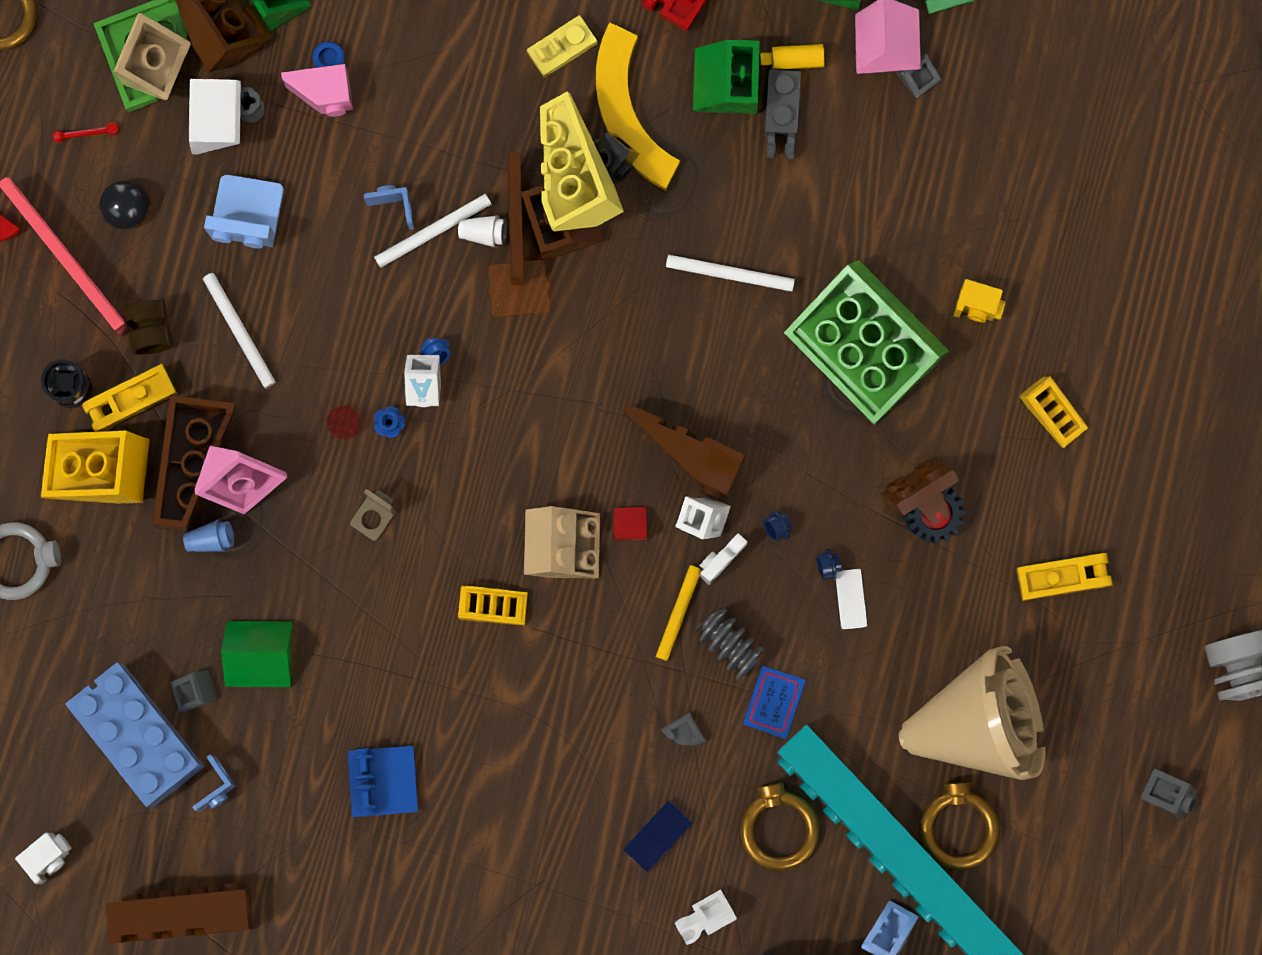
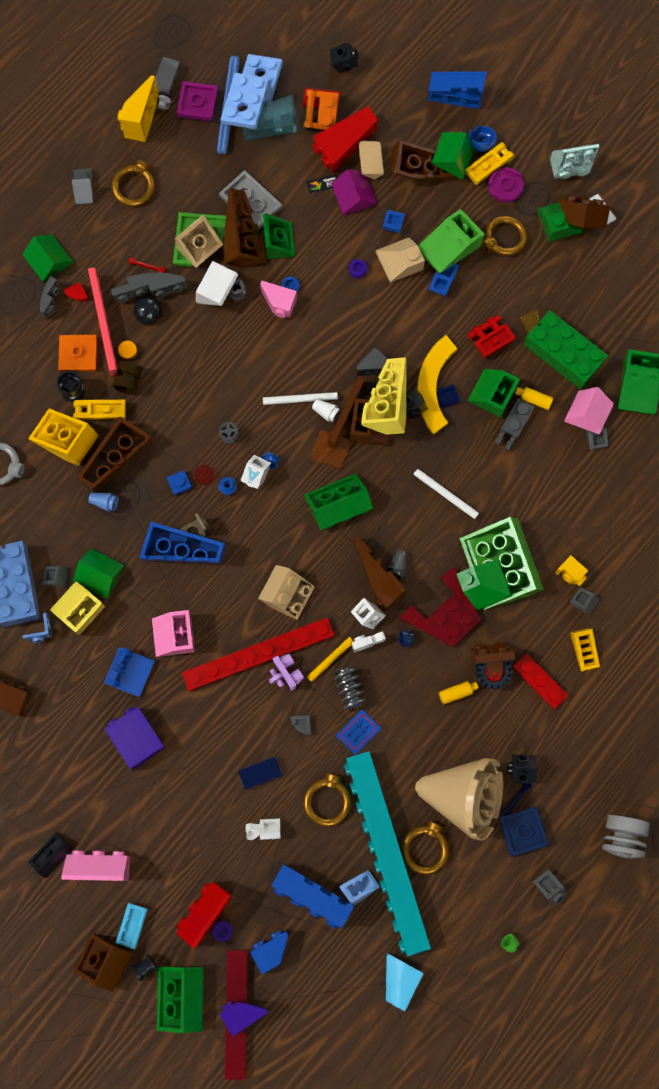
camera: 20 degrees right, 5 degrees down
(48, 325) = (77, 353): none -> orange plate
(115, 155) = (155, 283): none -> dark grey slope
(125, 283) = (127, 350): none -> light orange tile
(236, 479) = (132, 476): bright pink slope -> none
(239, 330) = (173, 402): white bar -> none
(245, 211) = (207, 343): light blue bracket -> none
(253, 723) = (77, 608): none -> light yellow slope
(312, 453) = (179, 483): none -> blue plate
(346, 332) = (229, 428): none -> dark grey wheel
(355, 554) = (174, 545): none -> blue wedge
(390, 194) = (286, 368): medium blue bracket -> none
(421, 691) = (173, 633): none -> bright pink slope
(441, 876) = (134, 737): none -> dark purple brick
(465, 598) = (223, 593): yellow slope -> none
(519, 123) = (372, 363): none -> dark grey slope
(562, 46) = (415, 336): light yellow plate -> none
(565, 659) = (257, 654): none -> red plate
(572, 364) = (338, 501): none -> green slope
(630, 524) = (327, 599): red slope -> none
(635, 673) = (291, 679): none -> lavender hips
(658, 118) = (447, 396): none -> clear blue tile
(711, 419) = (398, 564): none -> dark grey cone
(828, 565) = (423, 672): dark blue plate -> none
(832, 462) = (451, 619): none -> dark red wing
(851, 599) = (426, 696): white sticker -> none
(857, 386) = (484, 584): none -> green slope
(894, 570) = (457, 692): none -> yellow cylinder
(1009, 493) = (540, 681): none -> red plate
(1018, 337) = (585, 600): none -> dark grey slope
(1047, 637) = (523, 768): none -> black brick
(1063, 577) = (548, 740): yellow plate -> none
(1063, 658) = (507, 811): none -> clear blue hinge
(1091, 730) = (523, 831): none -> dark blue plate
(1150, 898) = (510, 943): none -> bright green hinge

